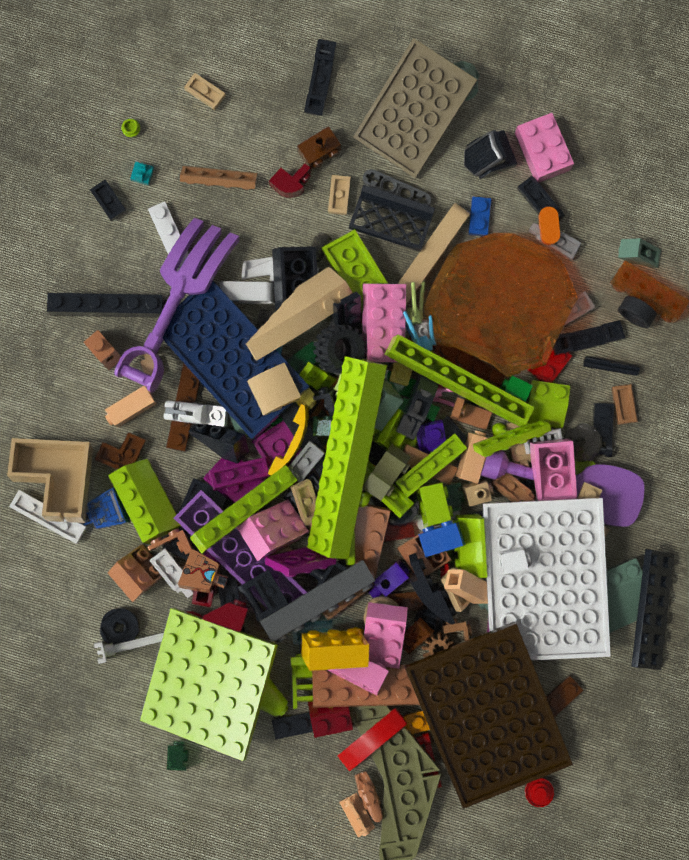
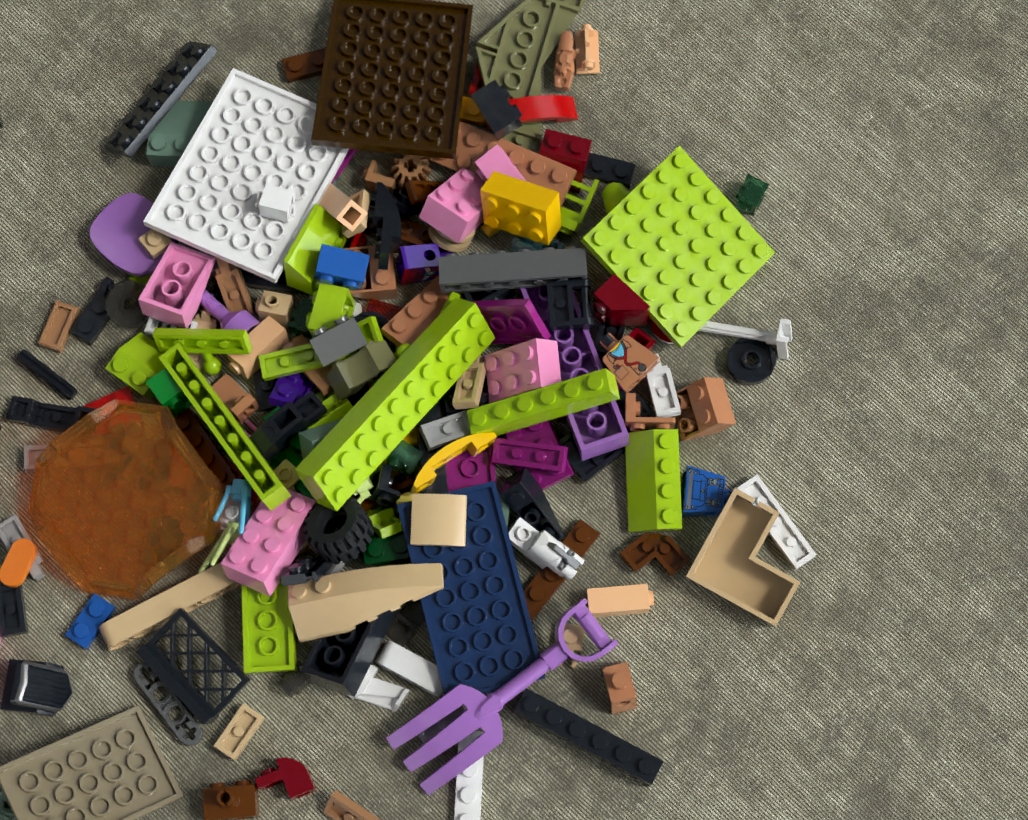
camera: 150 degrees left, 10 degrees down
(394, 722) = (497, 110): none -> black brick
(413, 481) = (337, 340): none -> dark grey brick

